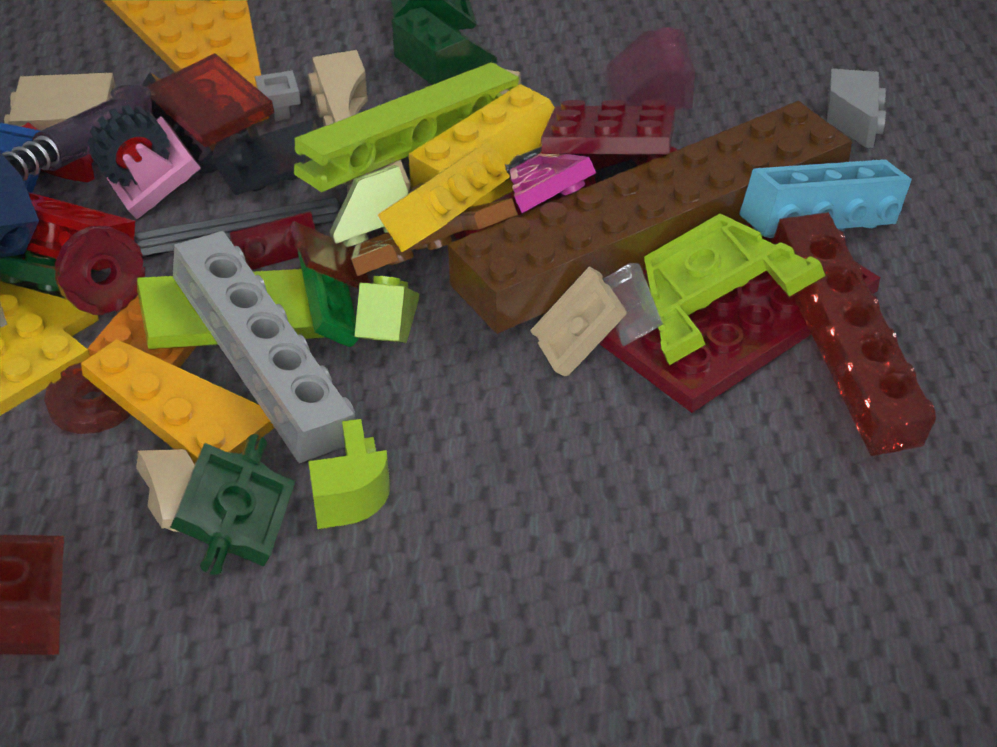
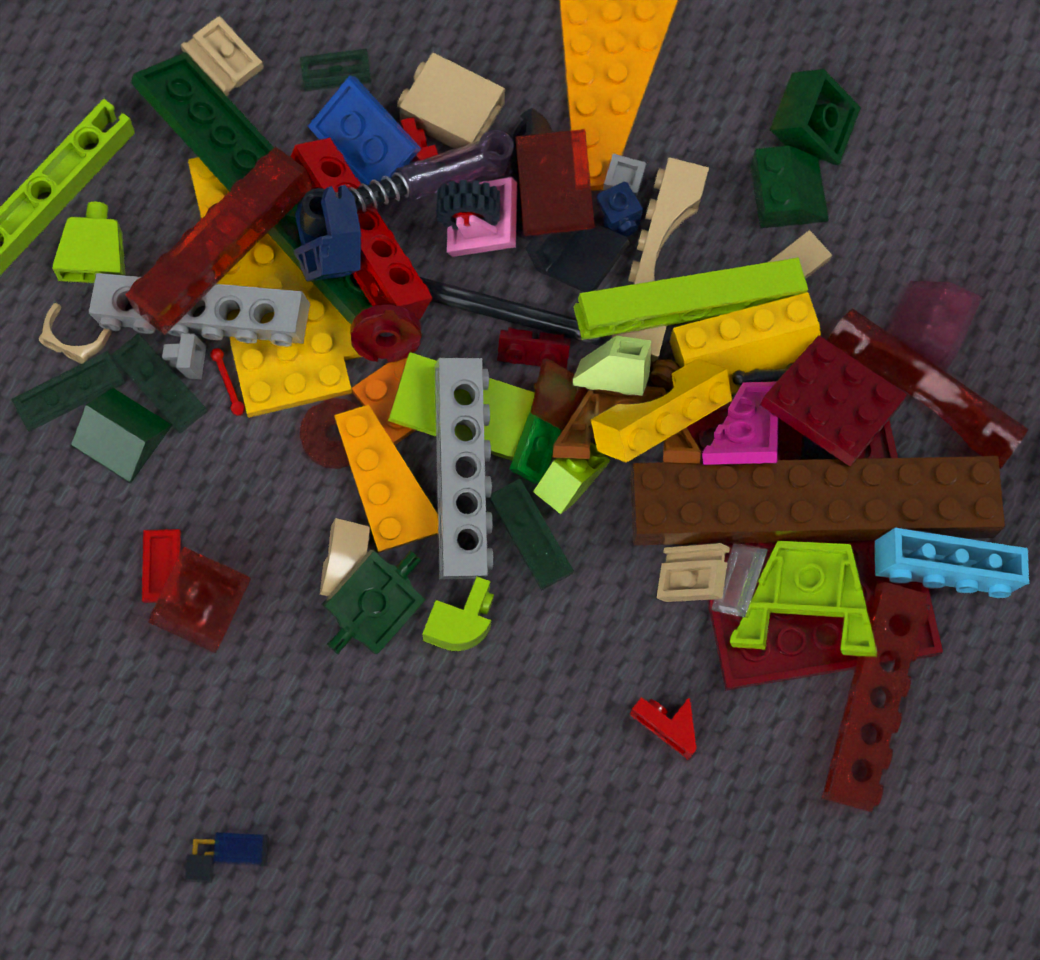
camera: 25 degrees right, 30 degrees up
(292, 104) = (620, 209): none -> dark blue bracket
(381, 378) = (531, 534): none -> clear green plate
(666, 464) = (675, 732): none -> red slope
(693, 110) = (970, 415): none -> clear red arch

